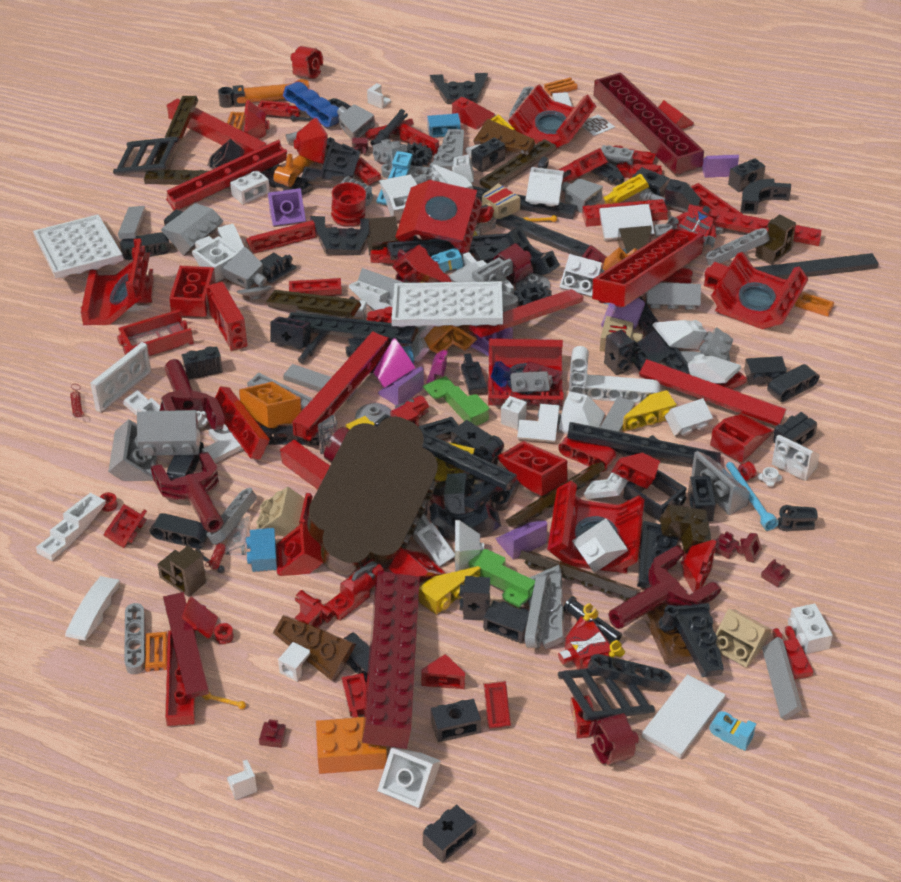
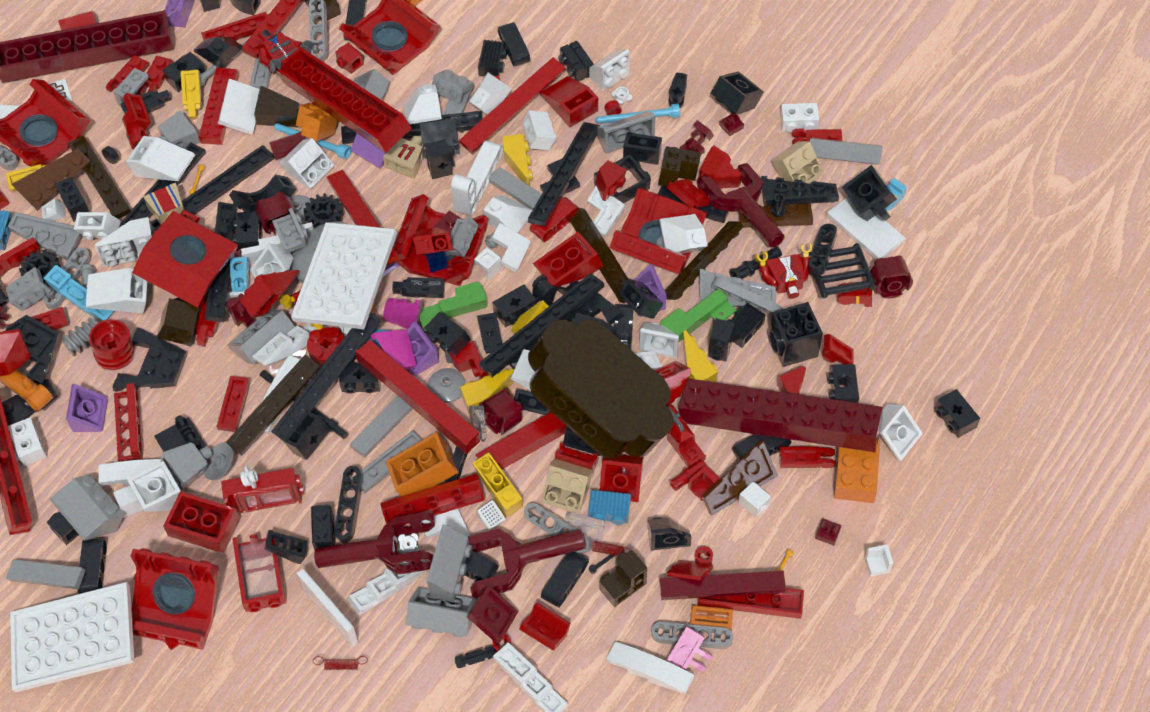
camera: 75 degrees left, 15 degrees up
(91, 484) = (474, 657): none -> black axle
(109, 632) = (686, 648): none -> bright pink hinge
(128, 480) = (492, 614): none -> dark red plate
(175, 352) = (289, 554): none -> black slope
(224, 287) = (249, 477): none -> white plate
(239, 469) = (490, 515): none -> white slope
(239, 592) = (666, 534): none -> black slope
(249, 371) = (352, 504): none -> black beam
(263, 465) = (498, 485): none -> yellow slope
(415, 391) = (447, 334): none -> black brick
(501, 521) = (640, 298): none -> black brick
(501, 655) = (795, 334): none -> black brick
(514, 358) = (432, 240): none -> red slope
(654, 541) = (689, 193): none -> red plate
(715, 697) = (870, 194): none -> black hinge
(811, 561) = (736, 92): none -> black brick

